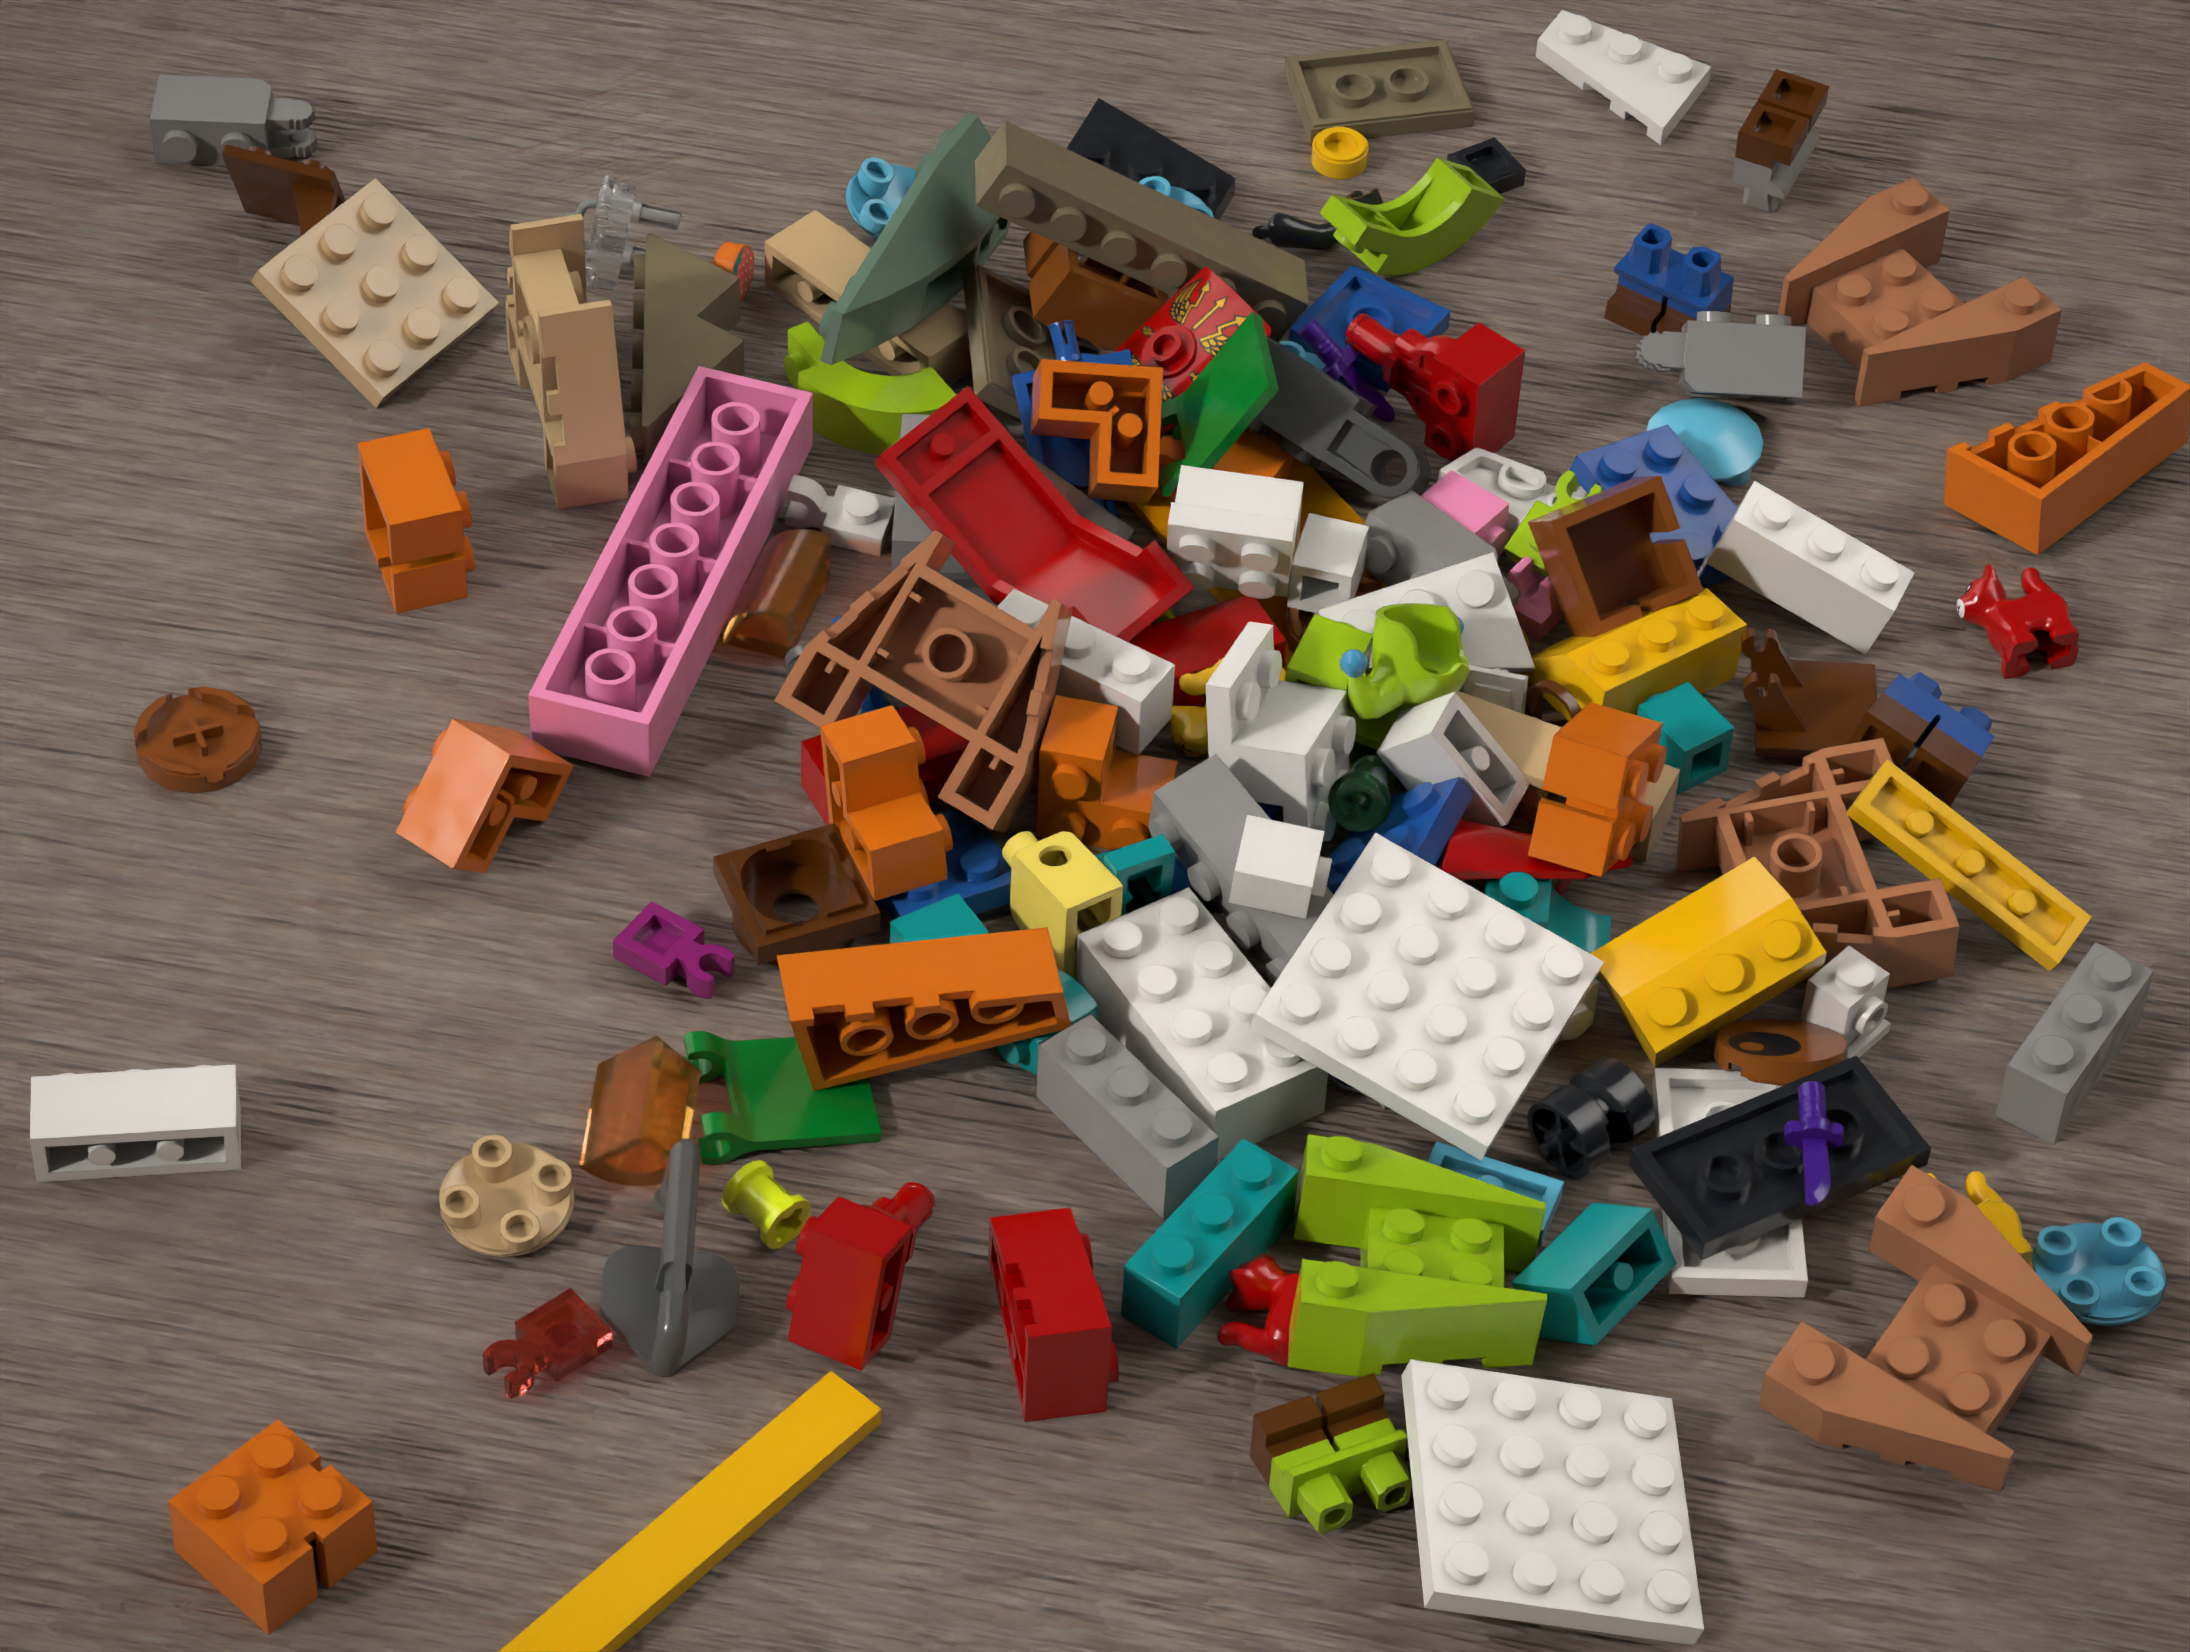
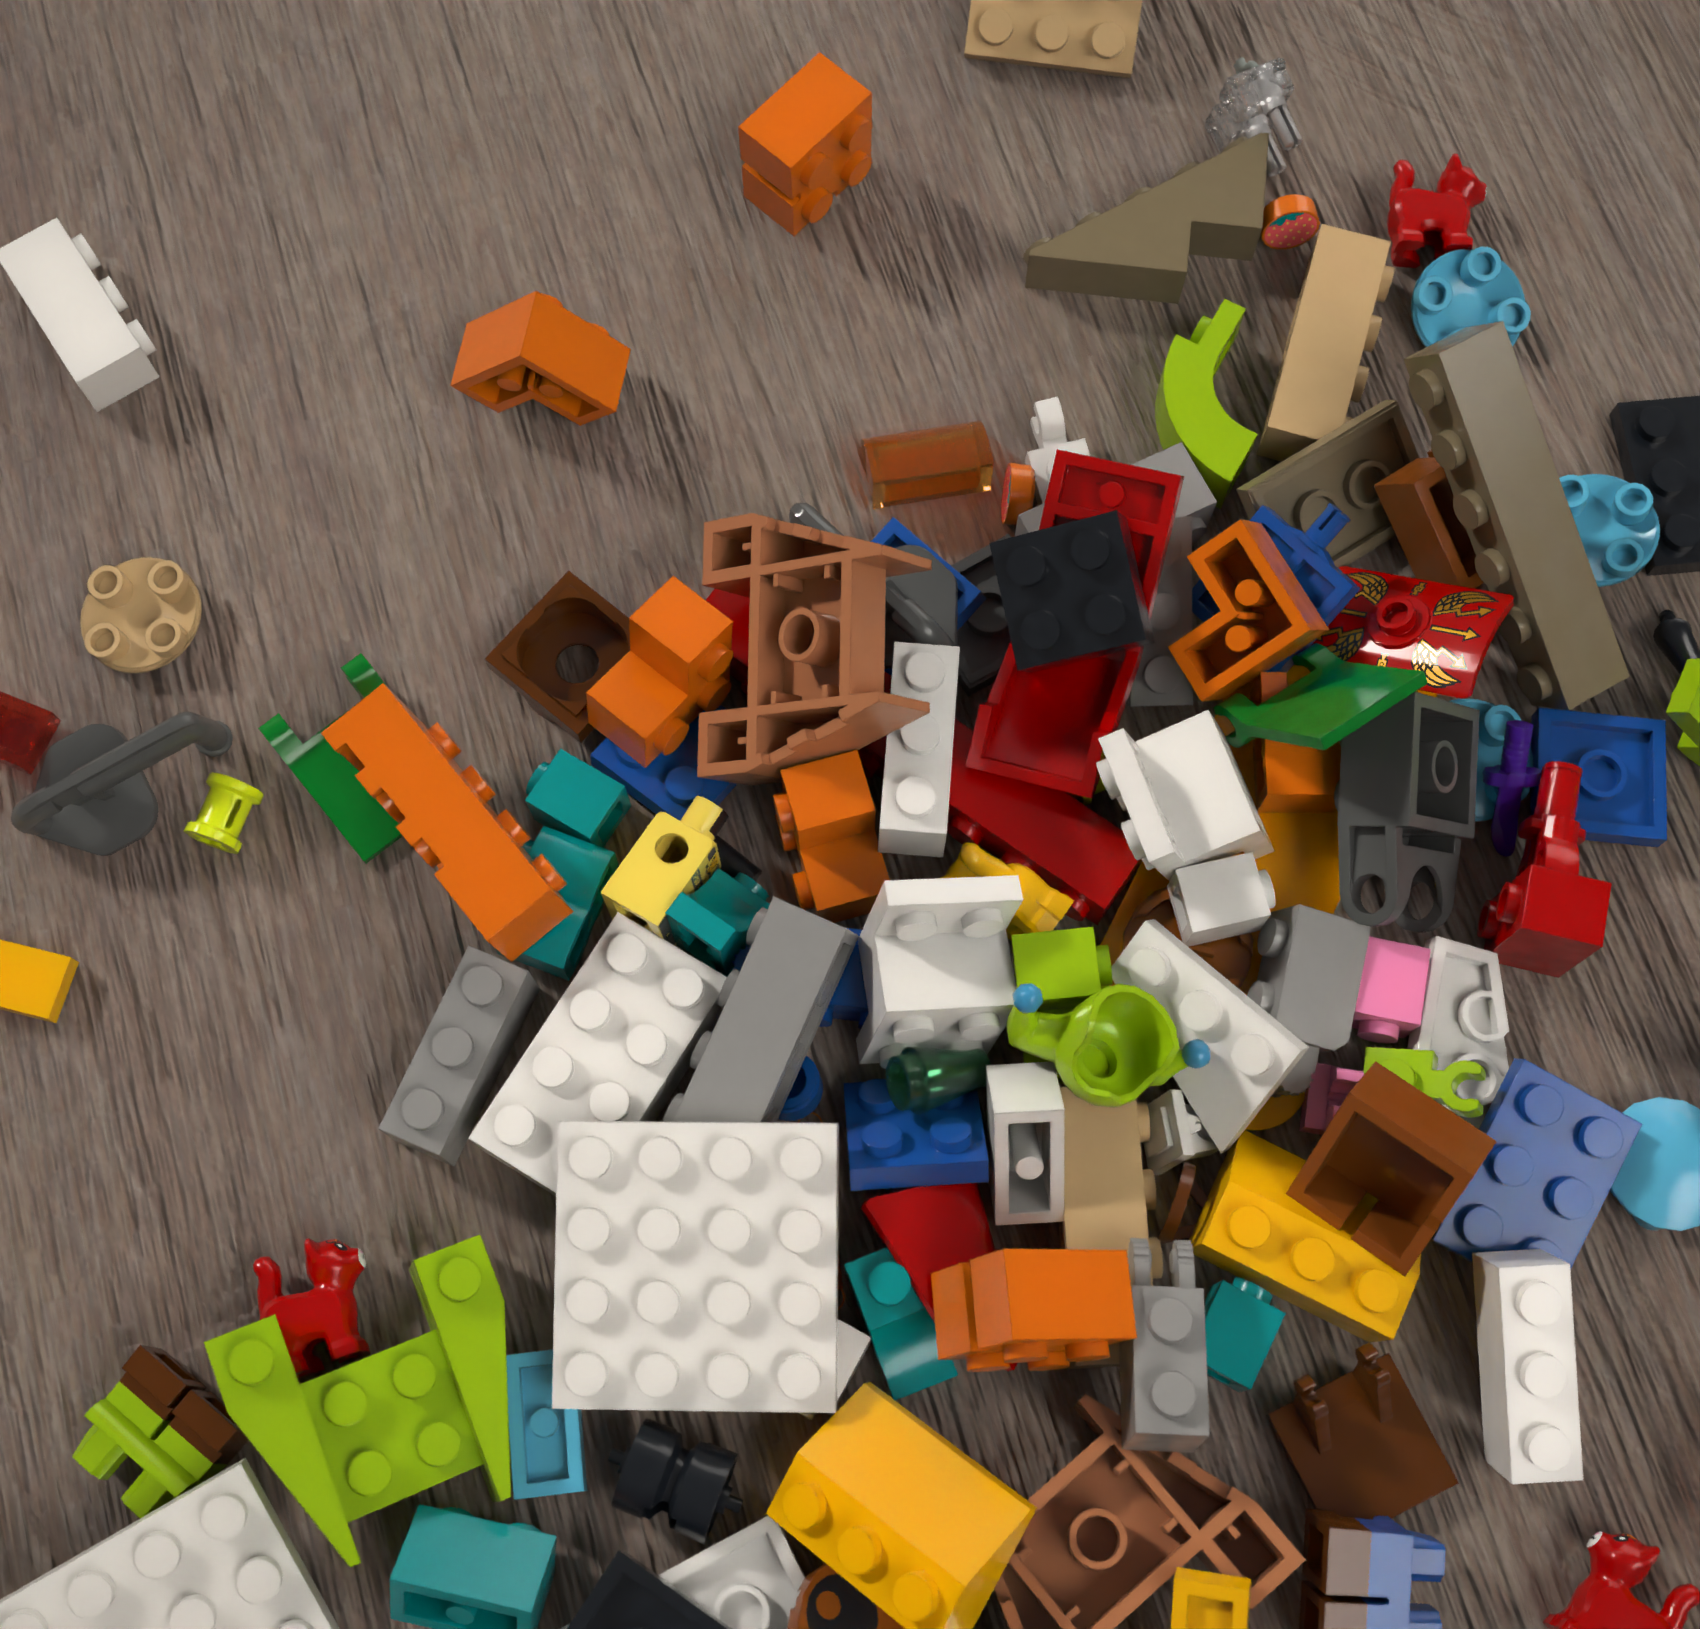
camera: 65 degrees right, 25 degrees up
(198, 740) = (515, 137): dark orange tile -> none
(569, 362) = (1075, 105): tan wedge -> none
(638, 1112) = (272, 668): clear orange brick -> none
(669, 946) = (467, 586): magenta plate -> none
(671, 572) = (888, 363): bright pink brick -> none
(795, 182) = (1430, 217): none -> red animal
(854, 1273) = (137, 921): red brick -> none
(859, 548) = (1017, 492): none -> orange tile
(920, 251) = (1355, 345): sand green wedge -> none
(1015, 507) = (1072, 592): none -> black brick
(1052, 1314) = (199, 1108): red wedge -> none
(1219, 1226) = (347, 1201): teal brick -> none
(1279, 867) = (733, 1057): white brick -> none
(1709, 742) = (1167, 1362): none -> light grey hinge

